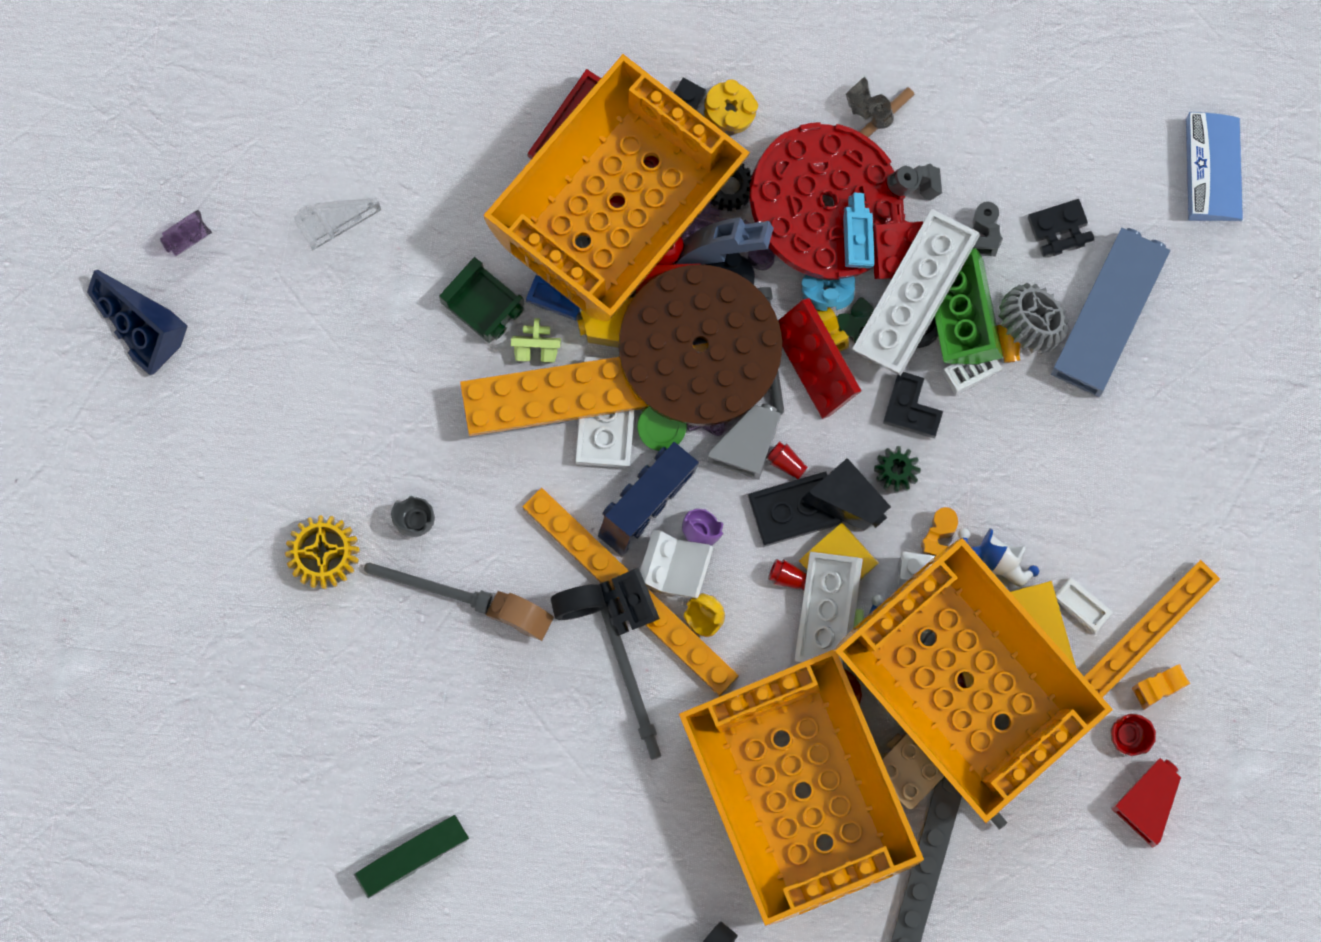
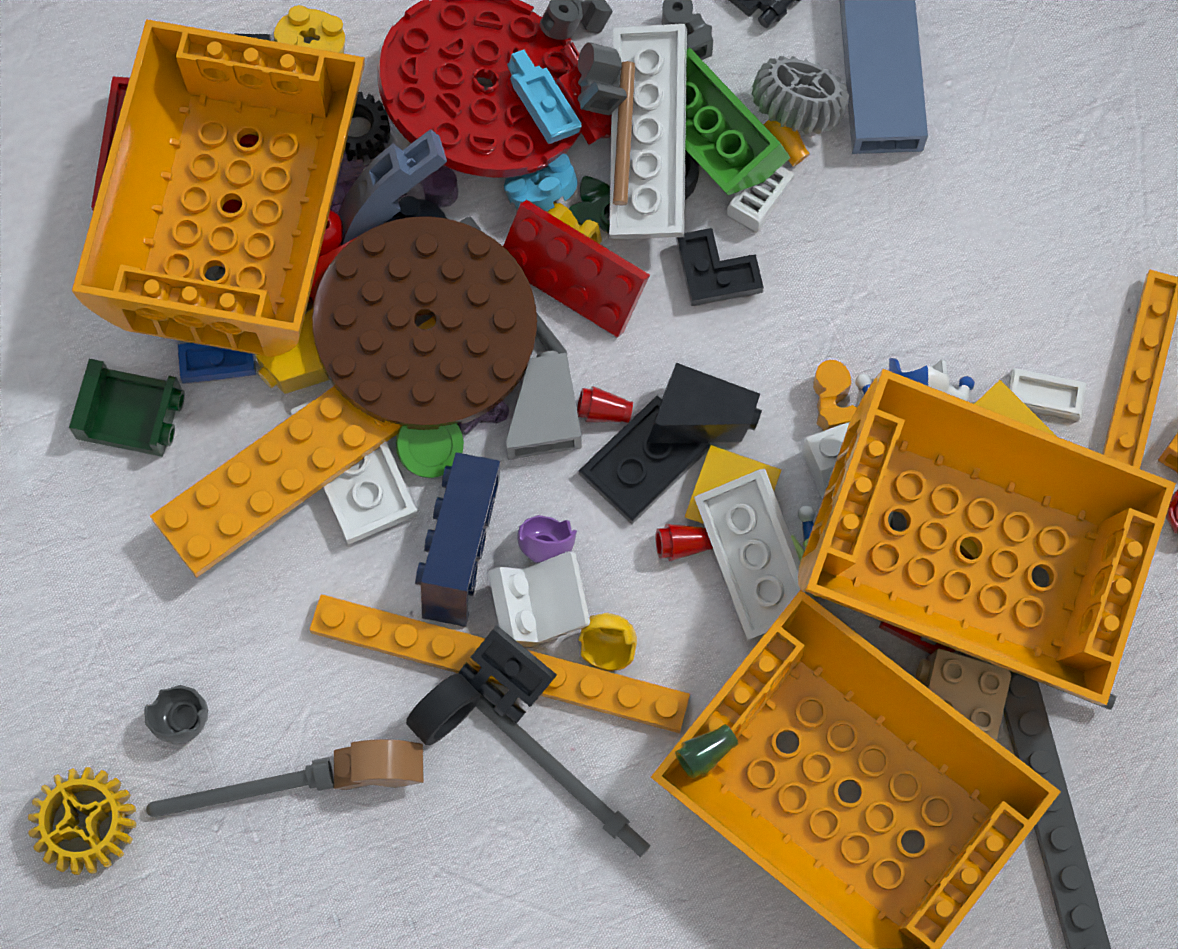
camera: 30 degrees left, 5 degrees down
(523, 344) = (206, 434): yellowish green hips -> none
(719, 716) = (703, 752): none -> clear green cone
(897, 286) = (624, 131): none -> medium nougat bar
(904, 235) = (599, 71): none -> dark grey leg
(908, 472) = (743, 335): dark green gear -> none

